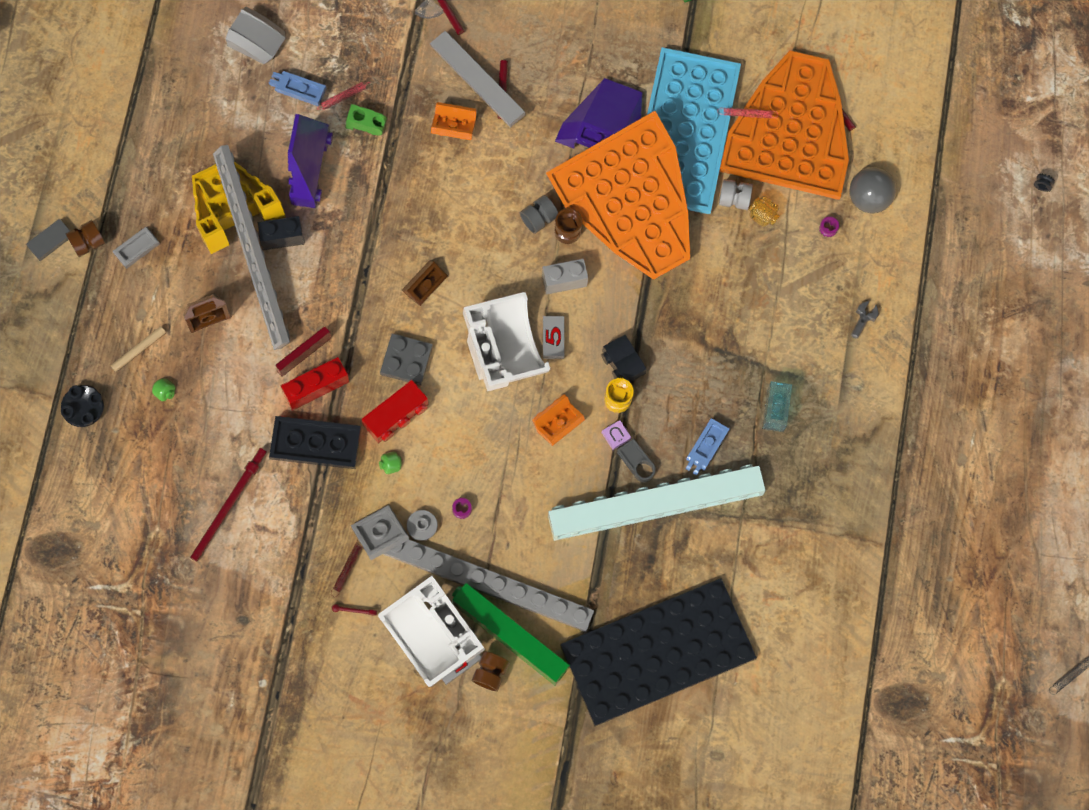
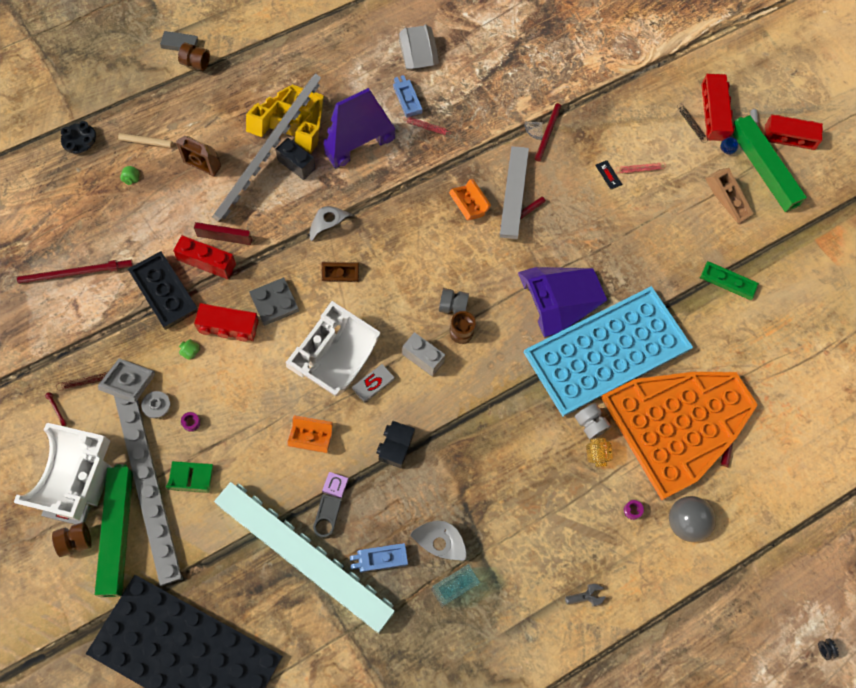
camera: 50 degrees right, 5 degrees down
(136, 247) = (215, 90): light grey tile -> none
(365, 120) = (420, 148): bright green leg -> none
(366, 265) = (320, 224): none -> light grey piece
(520, 535) = (180, 474): none -> green piece
(618, 395) = (364, 461): yellow wheel -> none
(631, 196) = (521, 350): orange piece -> none
(734, 112) = (670, 386): coral piece -> none
(740, 380) = (428, 532): none -> light grey piece

